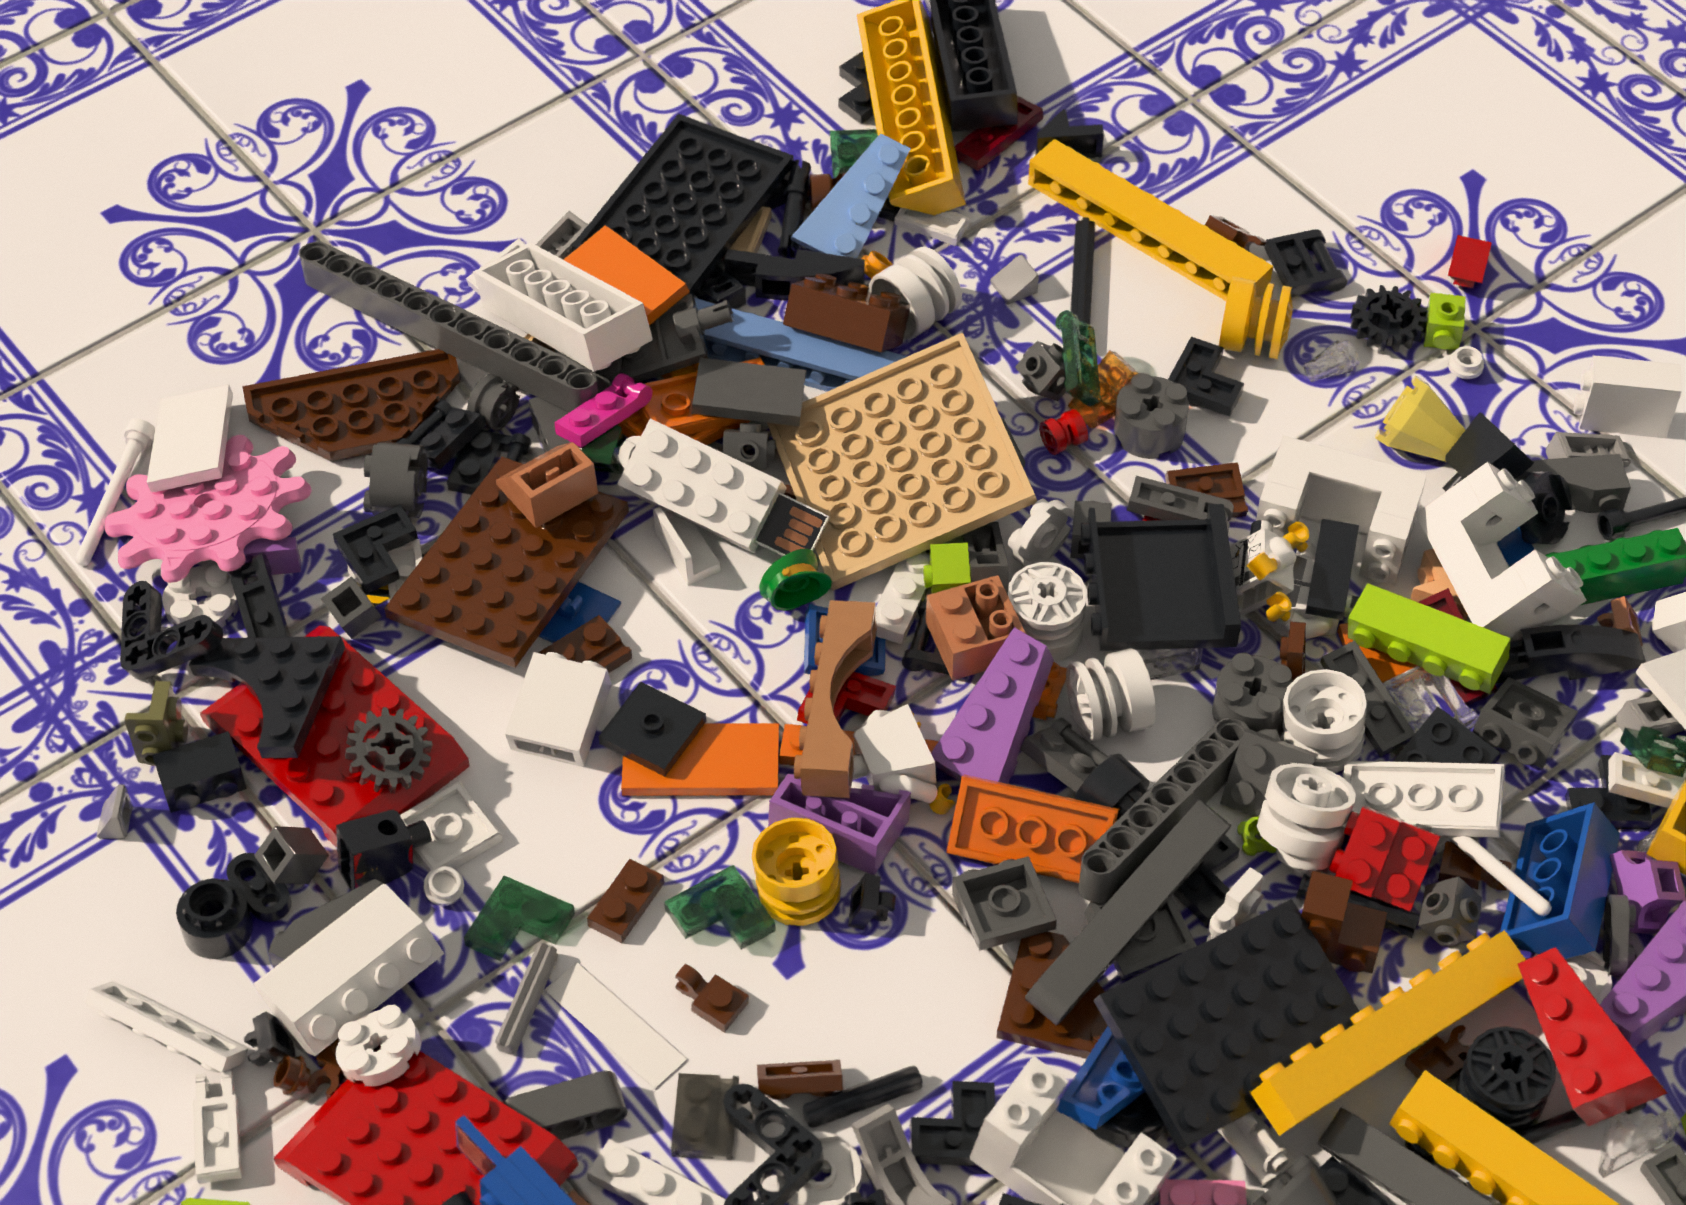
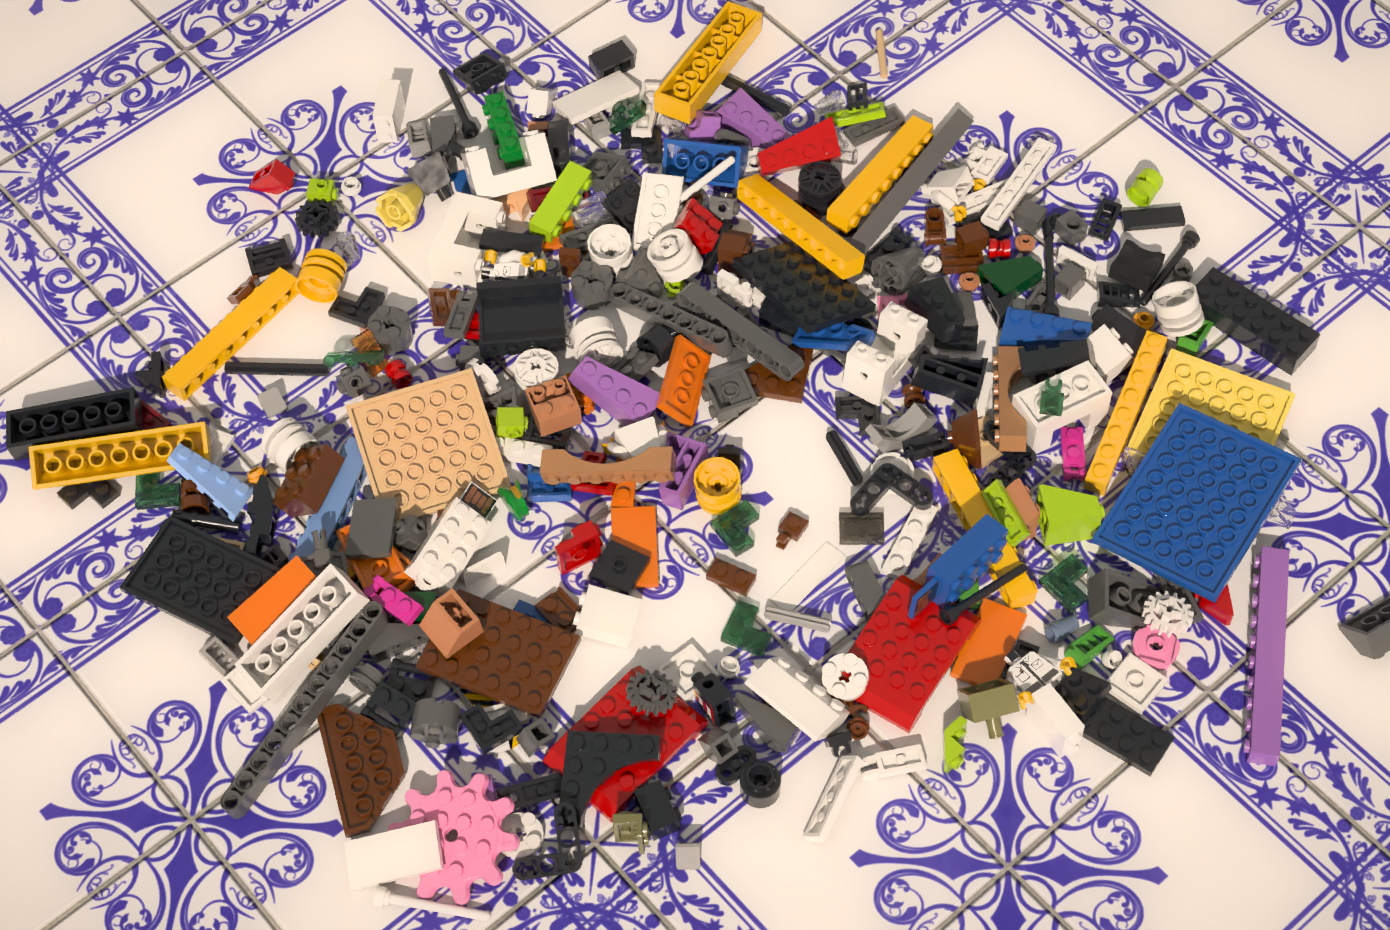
camera: 90 degrees left, 5 degrees up
(691, 664) = (580, 549): none -> red plate
(810, 1077) = (838, 483): reddish brown plate -> none

